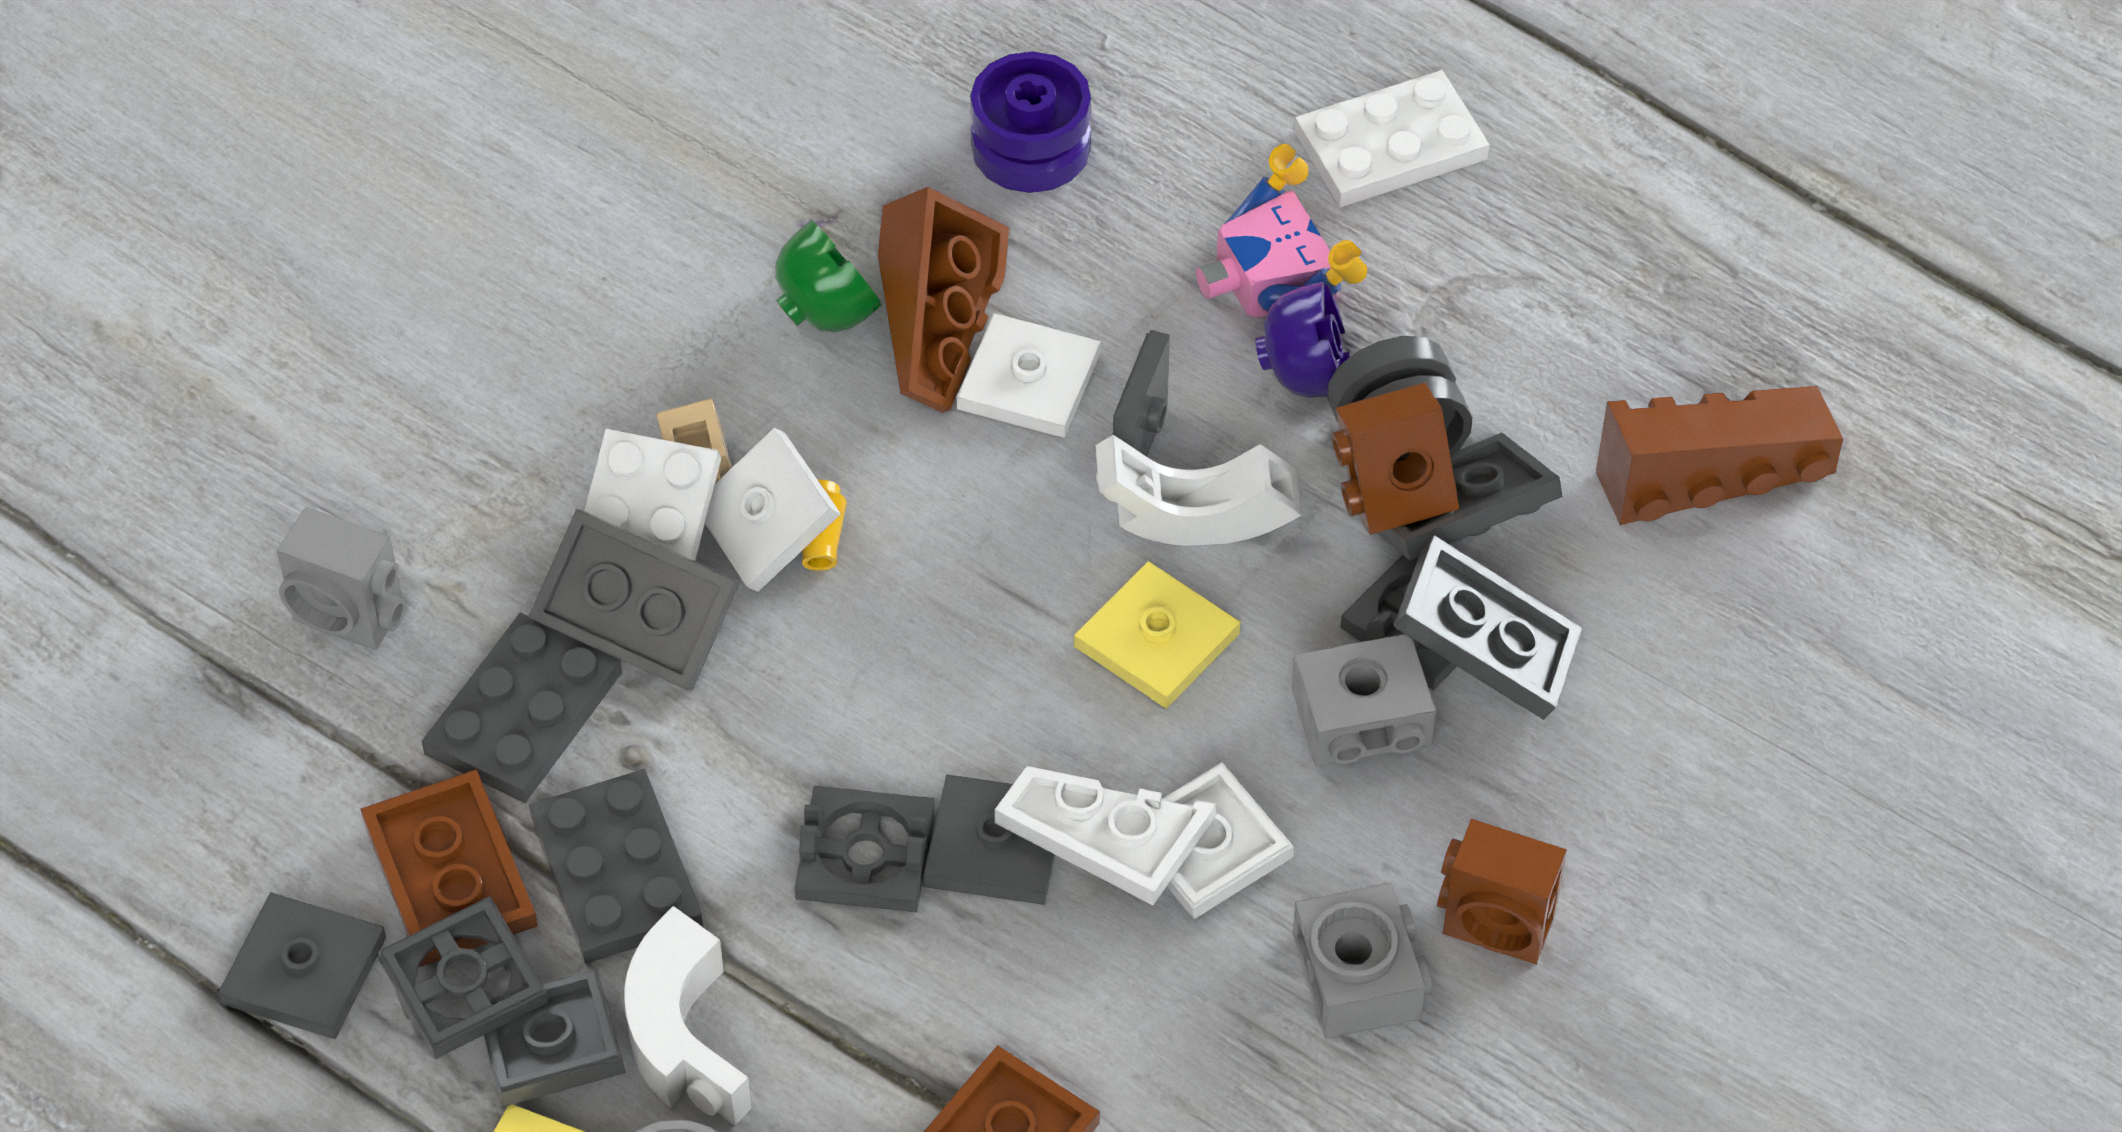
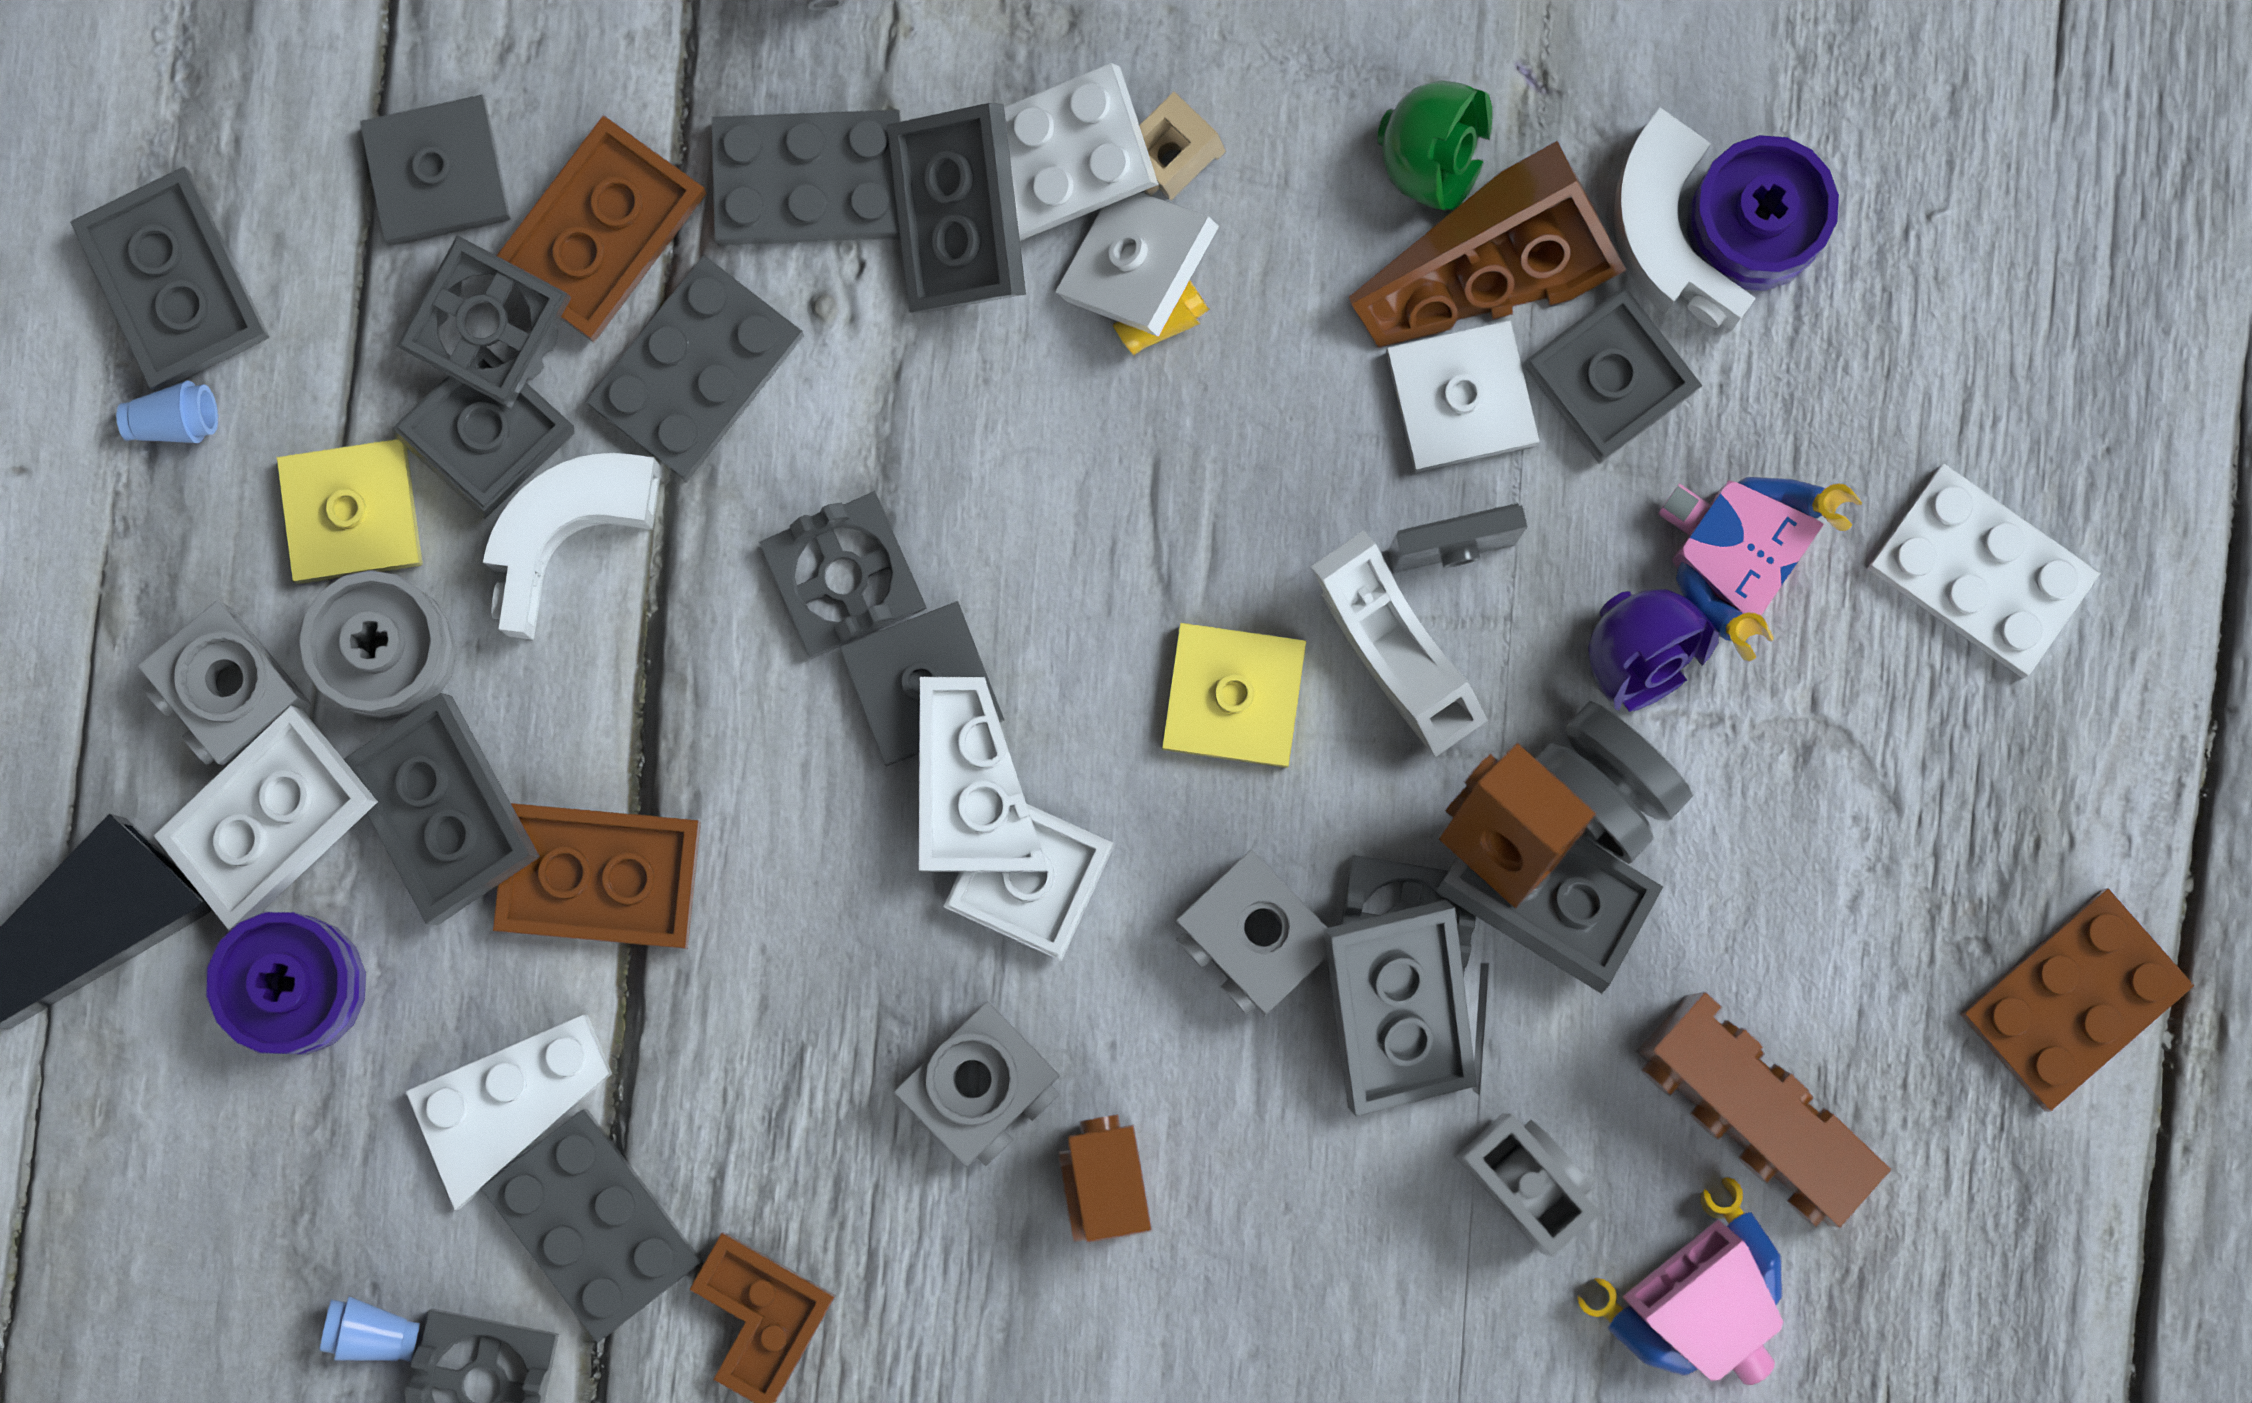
camera: 60 degrees right, 30 degrees up
(1015, 196) = (1650, 229): none -> white arch
(1083, 274) = (1612, 375): none -> dark grey plate
(1684, 613) = (1531, 1181): none -> light grey brick
(1754, 239) = (2076, 1000): none -> dark orange plate
(1851, 559) = (1707, 1302): none -> bright pink torso

